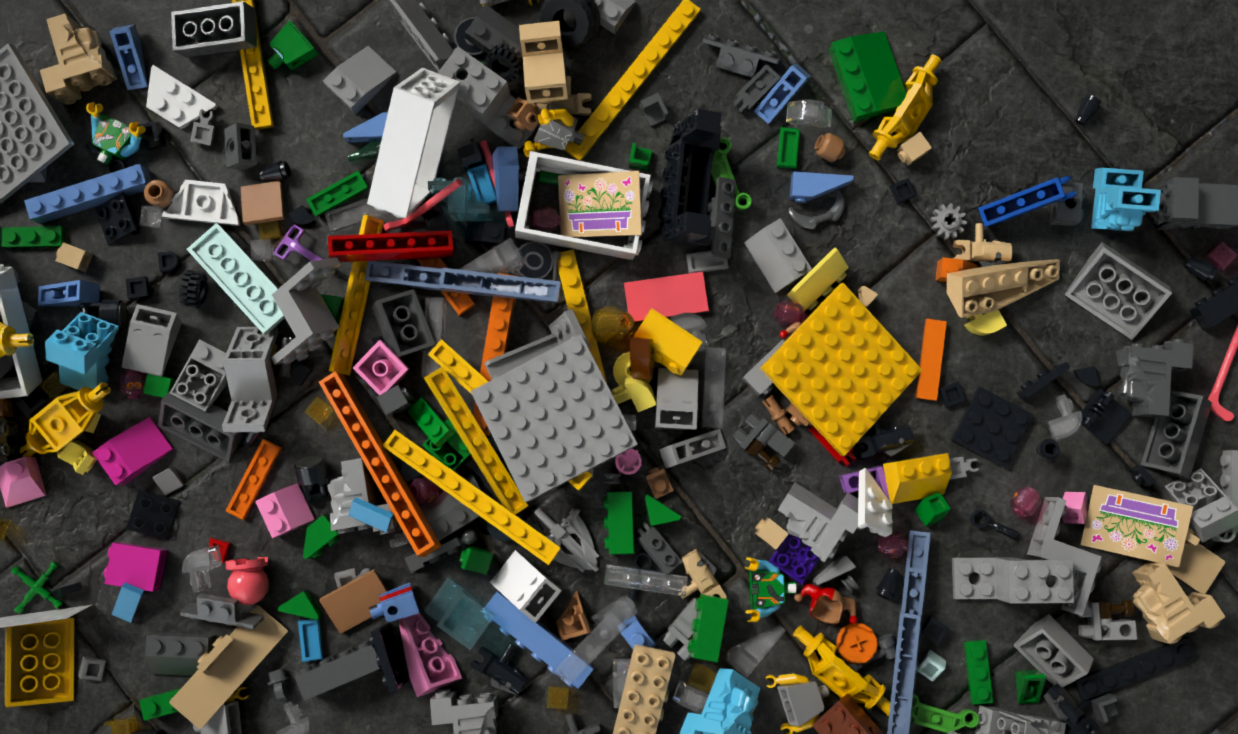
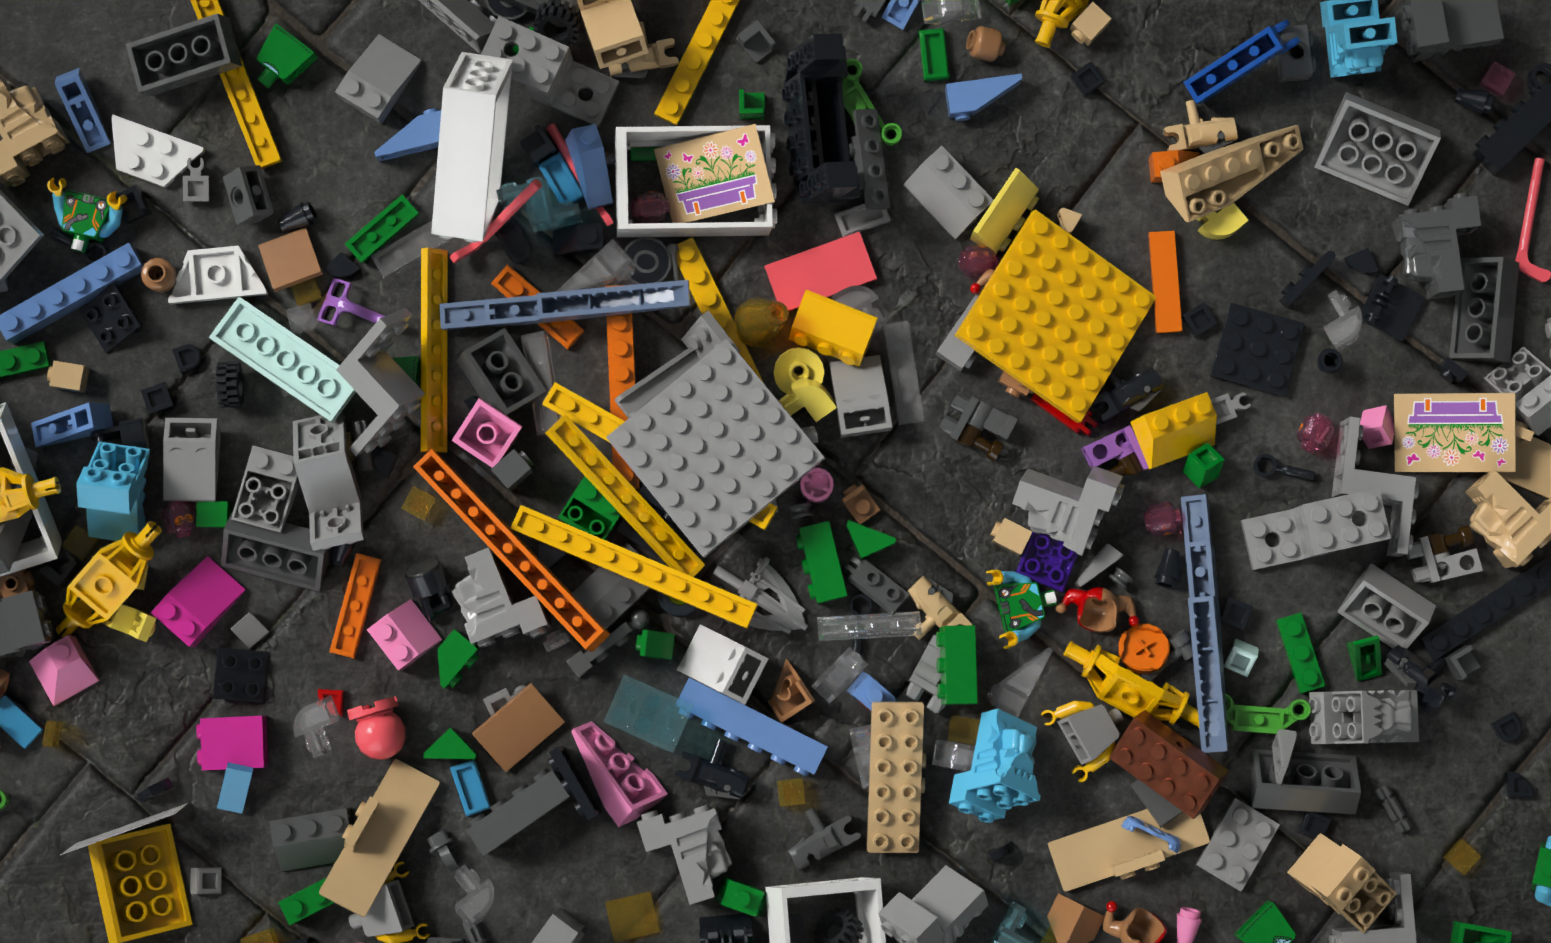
camera: 15 degrees left, 0 degrees up
(36, 587) = (114, 795): green piece -> none
(151, 217) = (155, 306): clear plate -> none
(220, 610) = (353, 771): dark grey bracket -> none
(369, 151) = (412, 166): clear green cone -> none
(371, 514) = (516, 612): dark azure tile -> none
(391, 246) = (467, 280): red brick -> none
(396, 604) = (577, 714): medium blue torso -> none
(424, 490) = (572, 572): clear pink head -> none
(430, 422) = (561, 487): green plate -> none
(524, 114) = (597, 82): medium nougat brick -> none
(554, 130) = (638, 94): torso -> none
(589, 648) = (818, 721): clear tile -> none
(640, 358) = (805, 354): reddish brown slope -> none
(692, 448) = (892, 453): light grey slope -> none
(778, 415) = (990, 389): medium nougat pin -> none
(811, 222) = (982, 142): dark grey piece -> none
(873, 506) = (1127, 474): white wing -> none
(954, 217) = (1157, 99): light grey gear -> none

